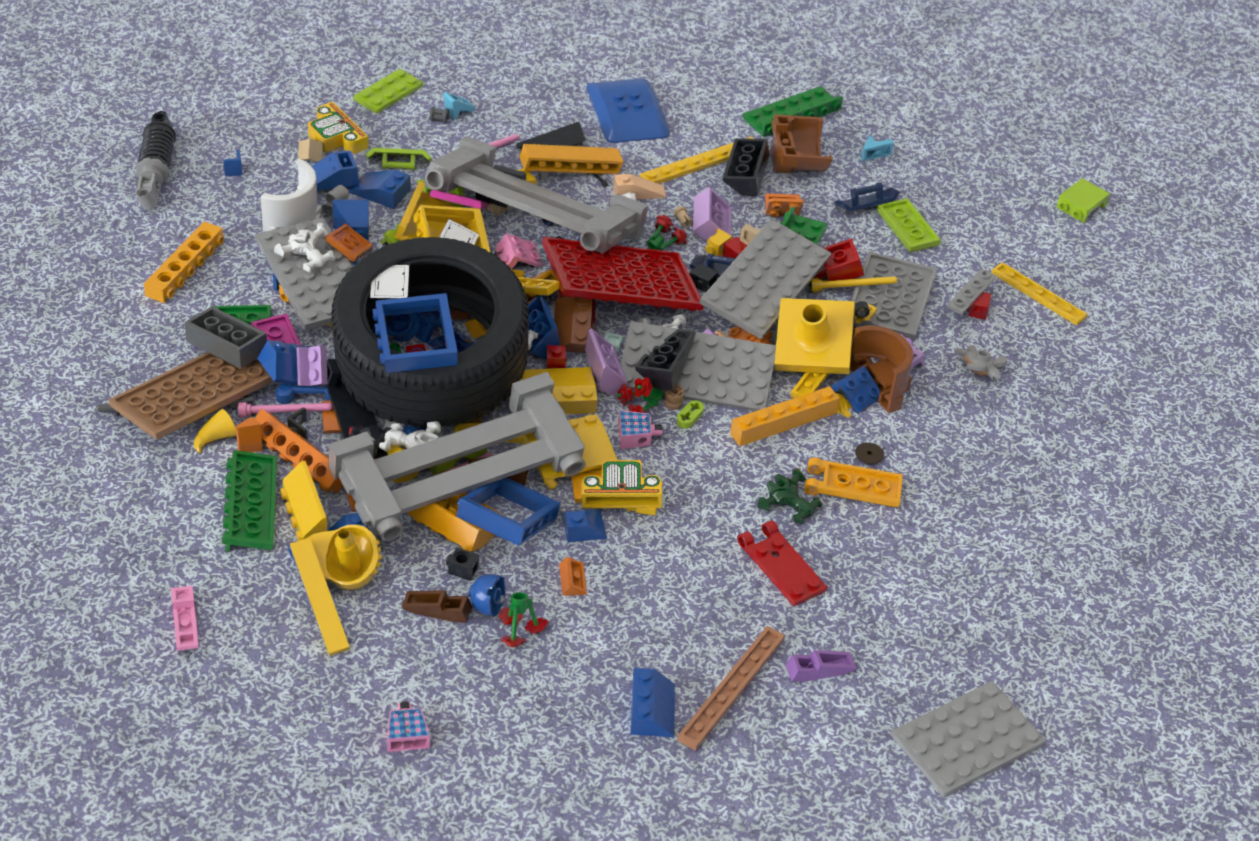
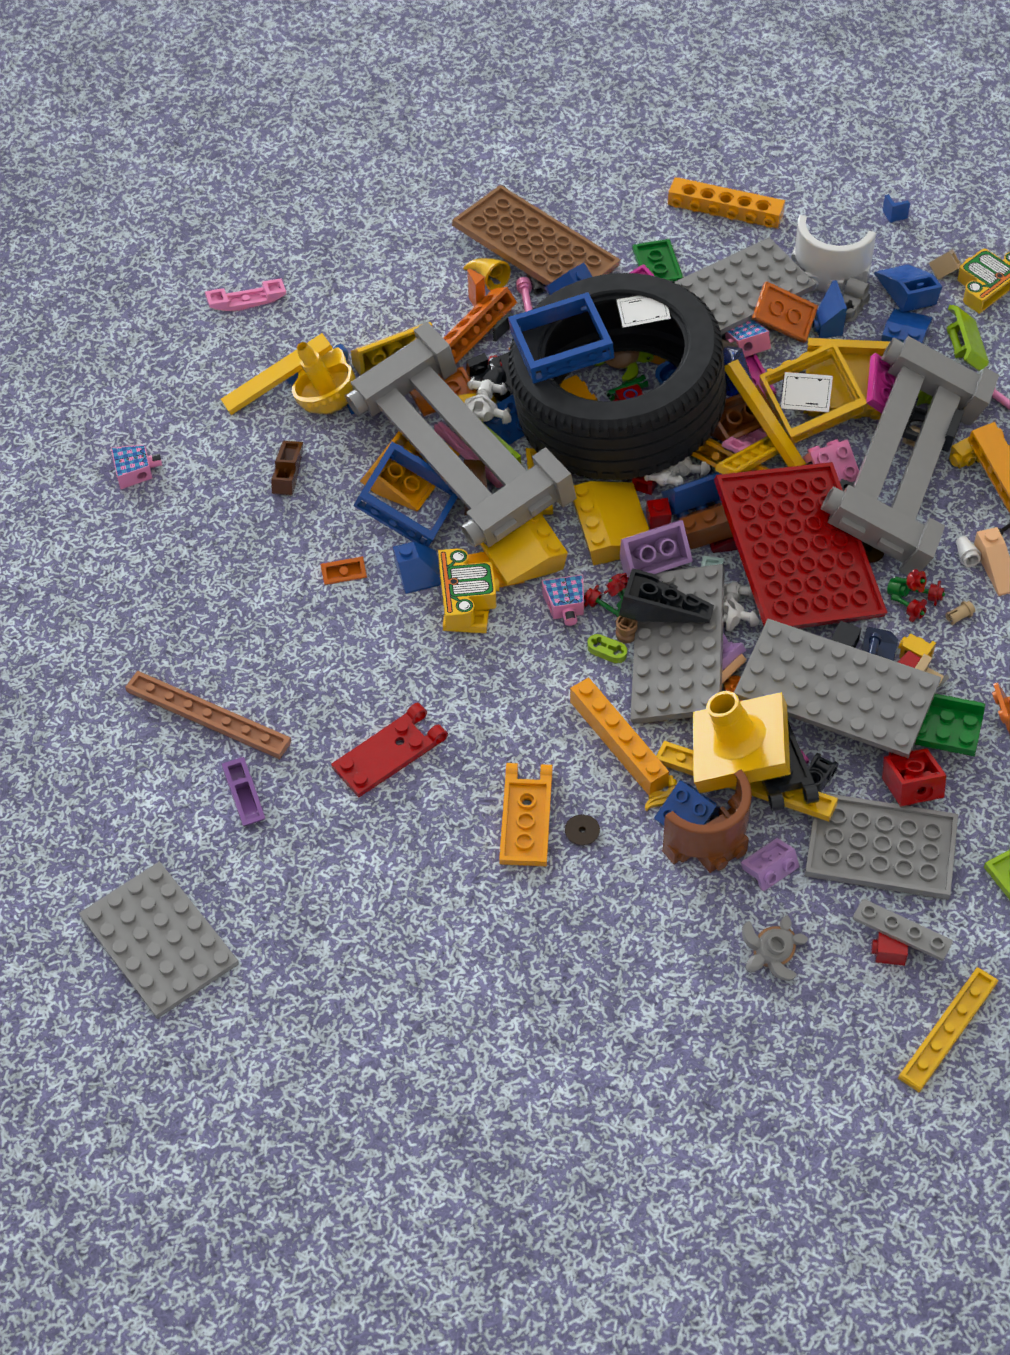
camera: 90 degrees right, 10 degrees up
(154, 159) = (874, 146): piece -> none
(225, 337) = (604, 242): dark grey brick -> none
(250, 500) = (400, 310): green bracket -> none
(304, 244) = (750, 267): white piece -> none
(463, 564) = (342, 477): black brick -> none
(487, 593) = (297, 498): blue cylinder -> none
(512, 615) = (280, 523): plant -> none
(652, 704) = (177, 646): blue slope -> none
(710, 214) = (967, 642): lavender slope -> none
(786, 493) = (493, 745): dark green piece -> none
(818, 285) = (874, 761): yellow piece -> none

